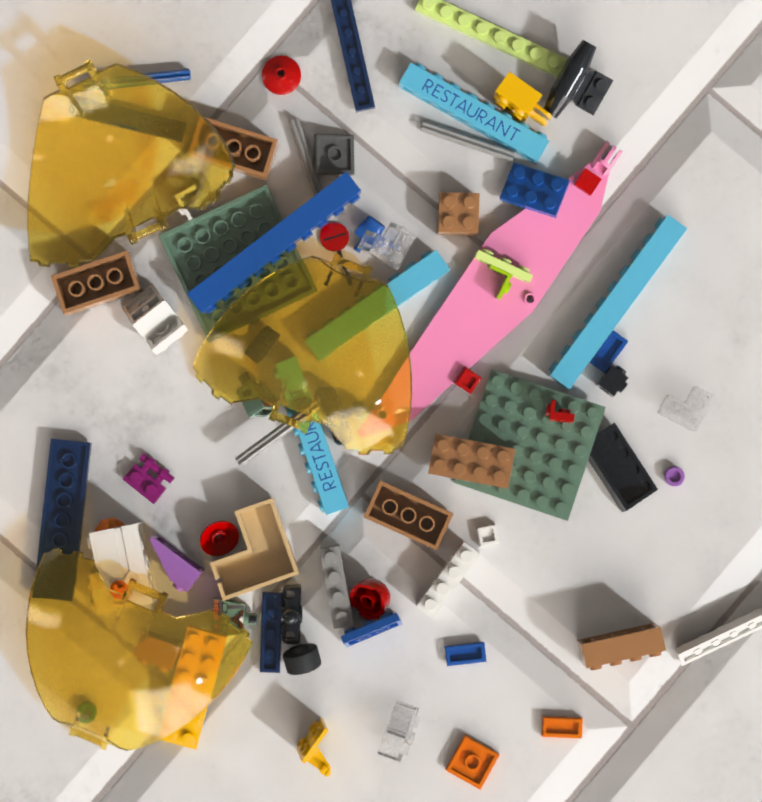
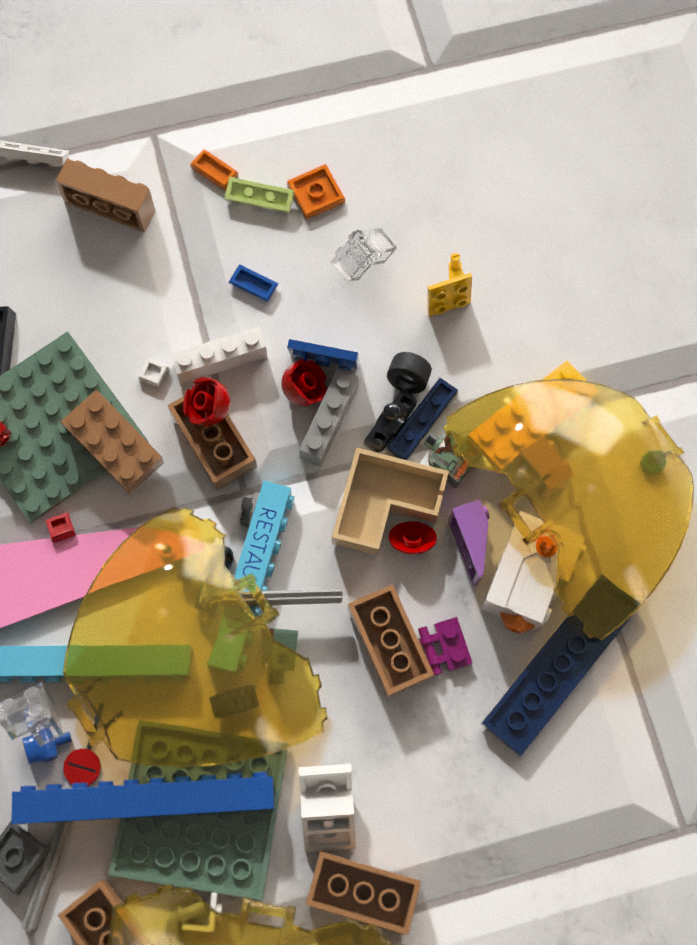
camera: 145 degrees left, 15 degrees down
(186, 454) = (390, 641): none -> medium nougat brick
(347, 478) = (247, 506): none -> dark grey tile
(422, 531) = (206, 402): none -> red cylinder
(511, 727) = (259, 195): none -> yellowish green plate

